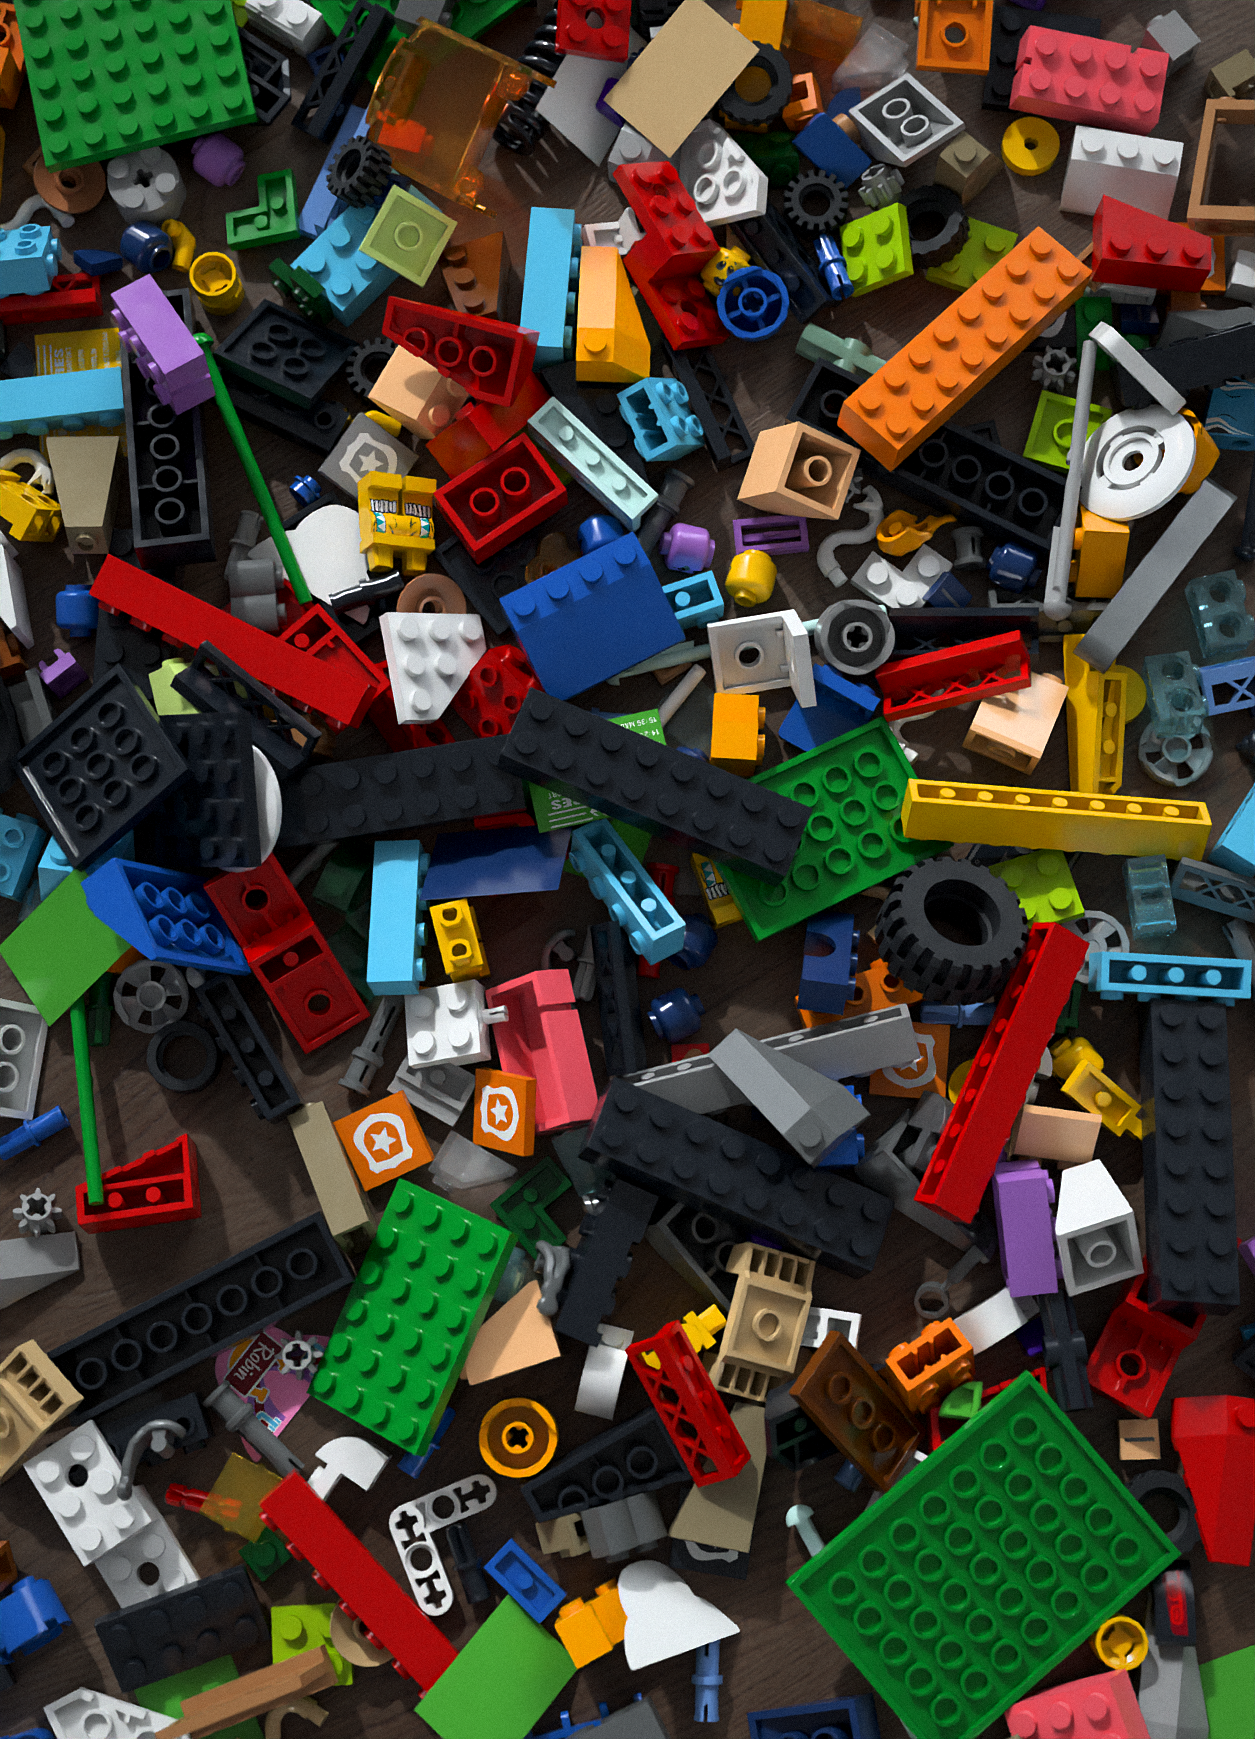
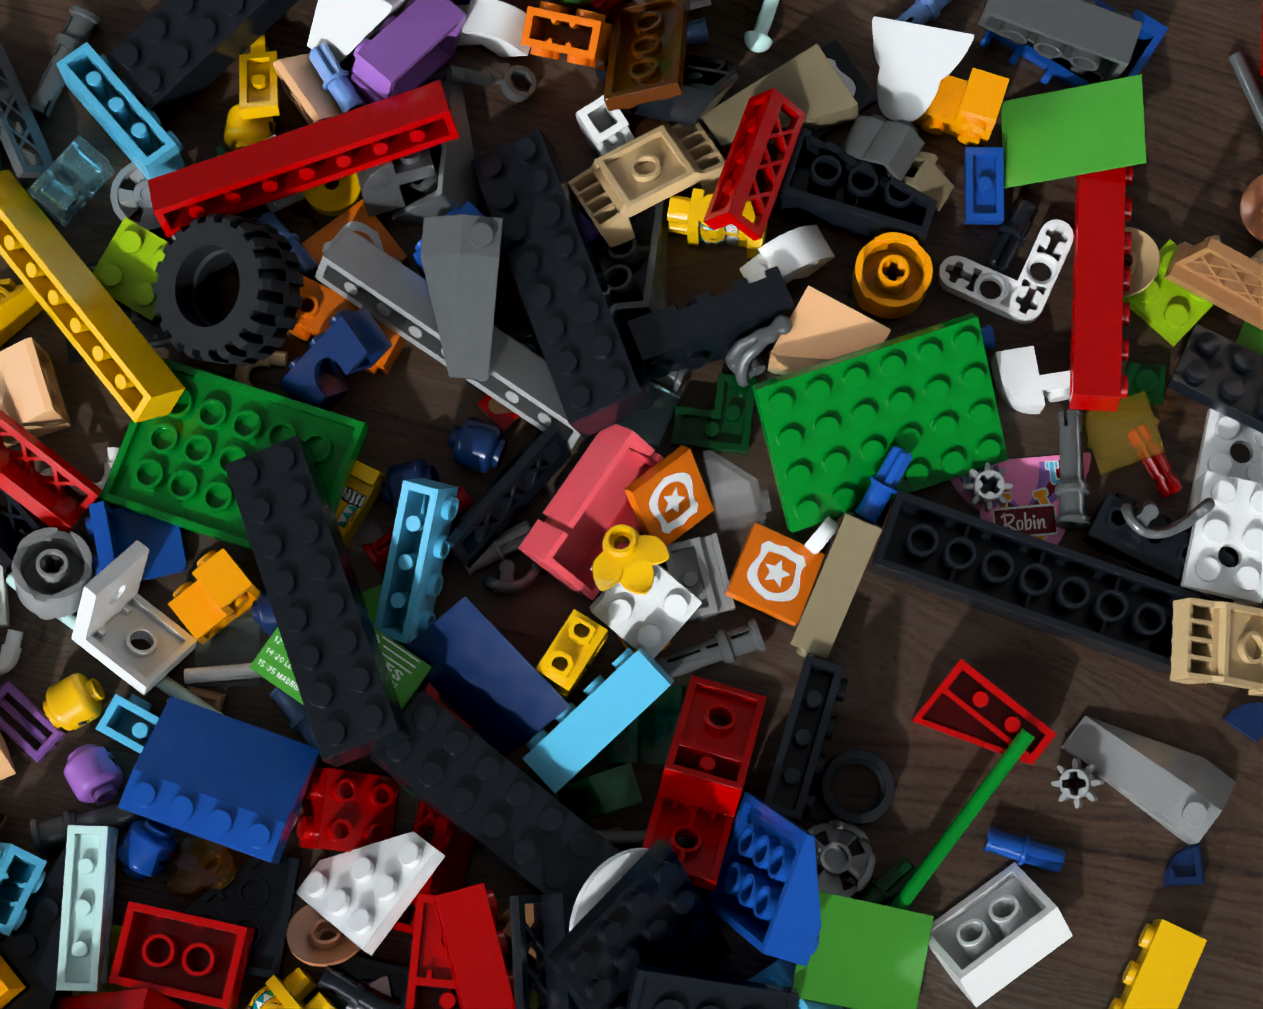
camera: 135 degrees left, 0 degrees up
(366, 1272) = (884, 483): none -> blue axle
(377, 1198) = (822, 535): none -> white tile
(477, 1032) = (628, 565): none -> yellow plate
(1048, 1153) = (335, 78): none -> medium blue axle

